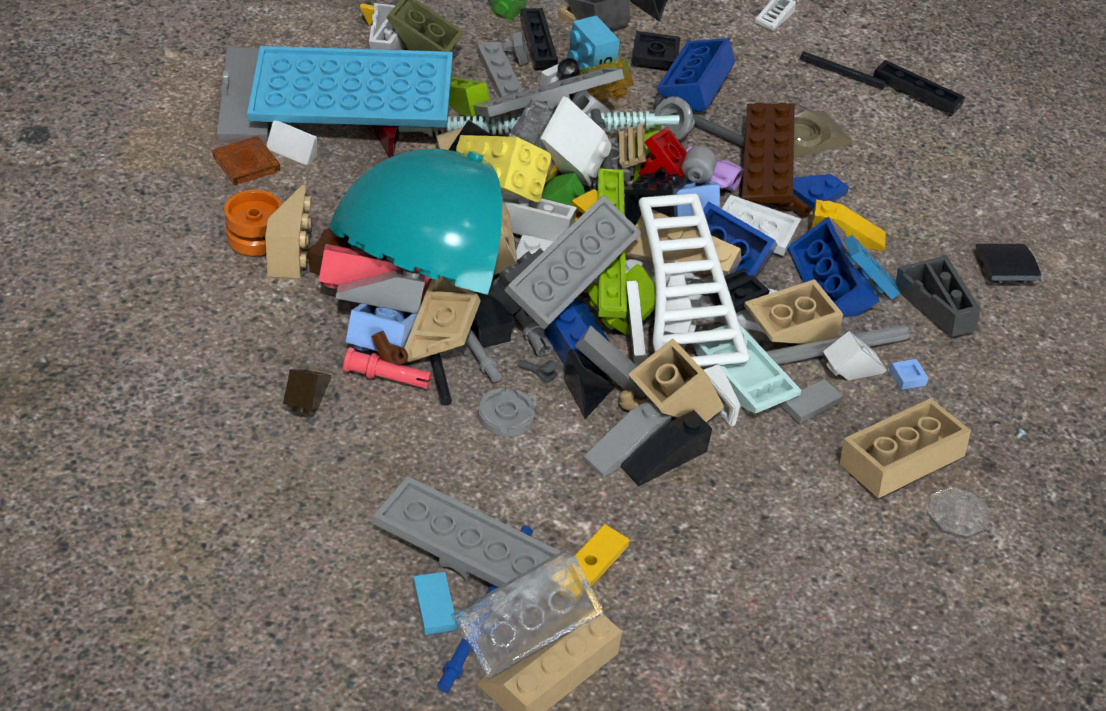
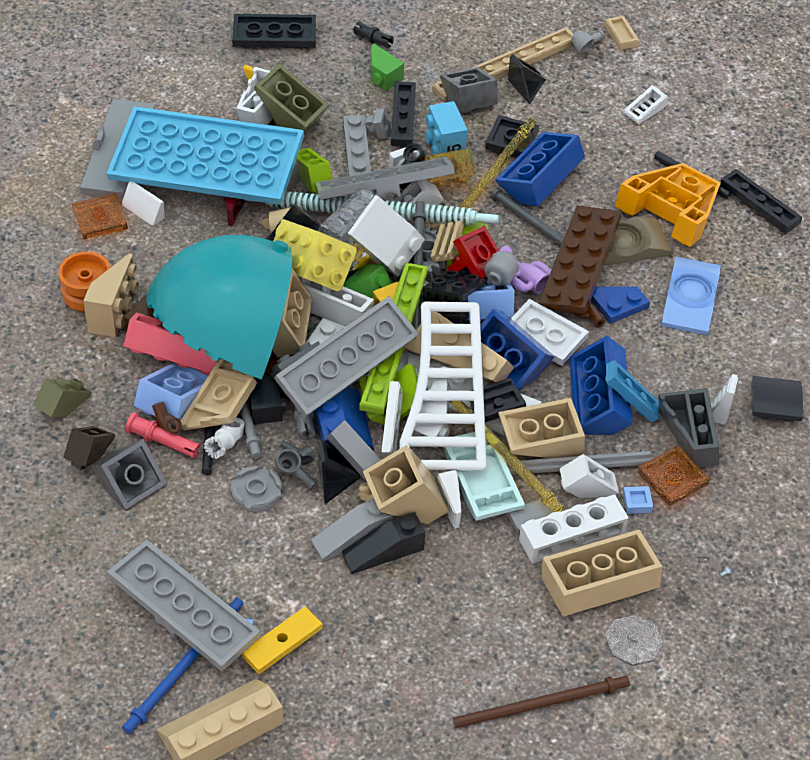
camera: 15 degrees right, 5 degrees up
(260, 341) = (61, 396): none -> olive slope
(362, 412) = (129, 474): none -> flat silver slope
(389, 290) = (177, 362): light grey slope -> none
(434, 603) = (141, 655): medium azure tile -> none
(461, 358) = (224, 438): none -> white connector
(527, 613) = (205, 679): clear slope -> none
(541, 379) = (293, 459): none -> dark grey bar
(668, 43) = (523, 132): none -> clear yellow bar
(676, 106) = (506, 209): light grey hair -> none
(822, 380) = (547, 497): none -> clear yellow bar
(838, 90) = (675, 195): none -> light orange wedge
(853, 224) = (637, 345): yellow slope -> none
(857, 408) = (573, 528): none -> white brick
(885, 178) = (691, 295): none -> light blue slope
(936, 346) = (673, 475): none -> clear orange plate
(950, 561) = (608, 685): none -> reddish brown bar
(966, 259) = (723, 400): none -> white slope

